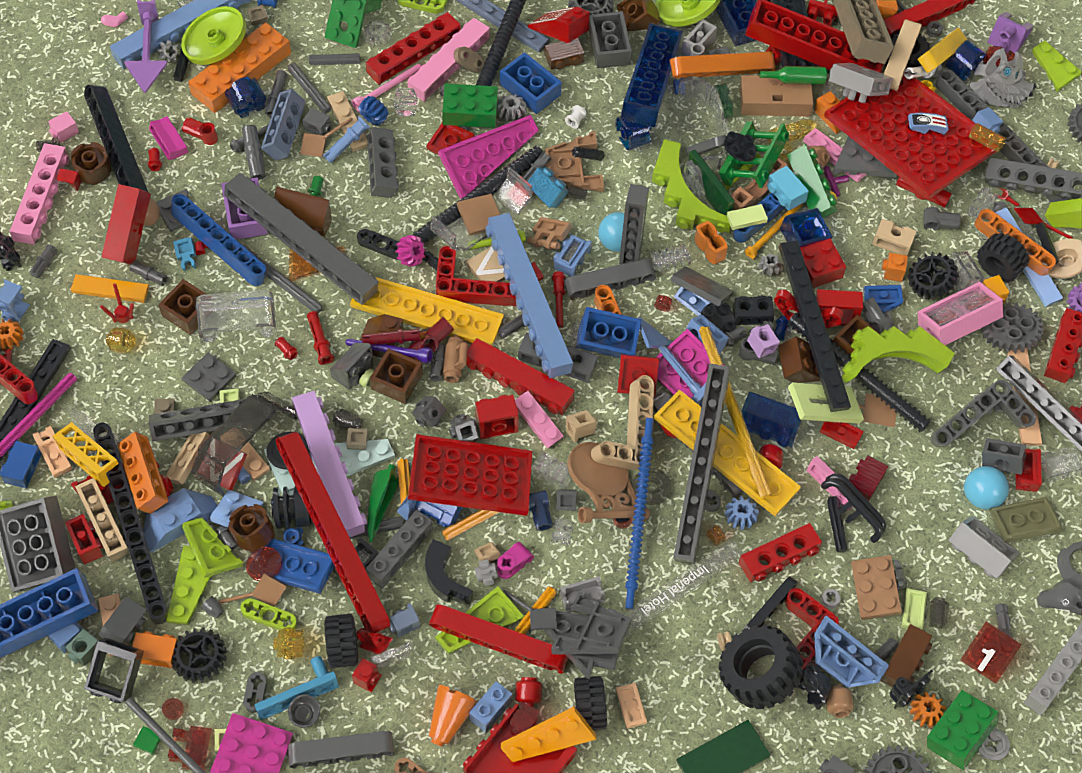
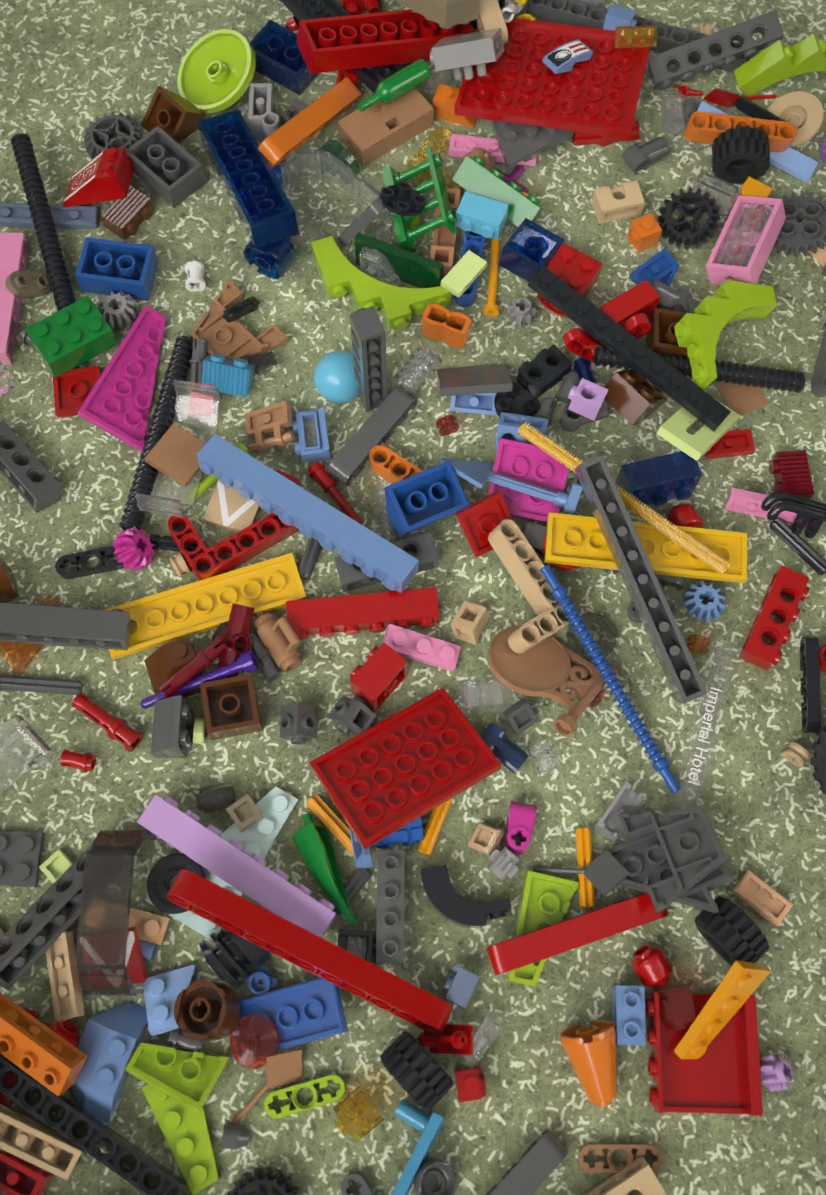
camera: 35 degrees left, 10 degrees up
(430, 278) = (179, 565): none -> tan bush

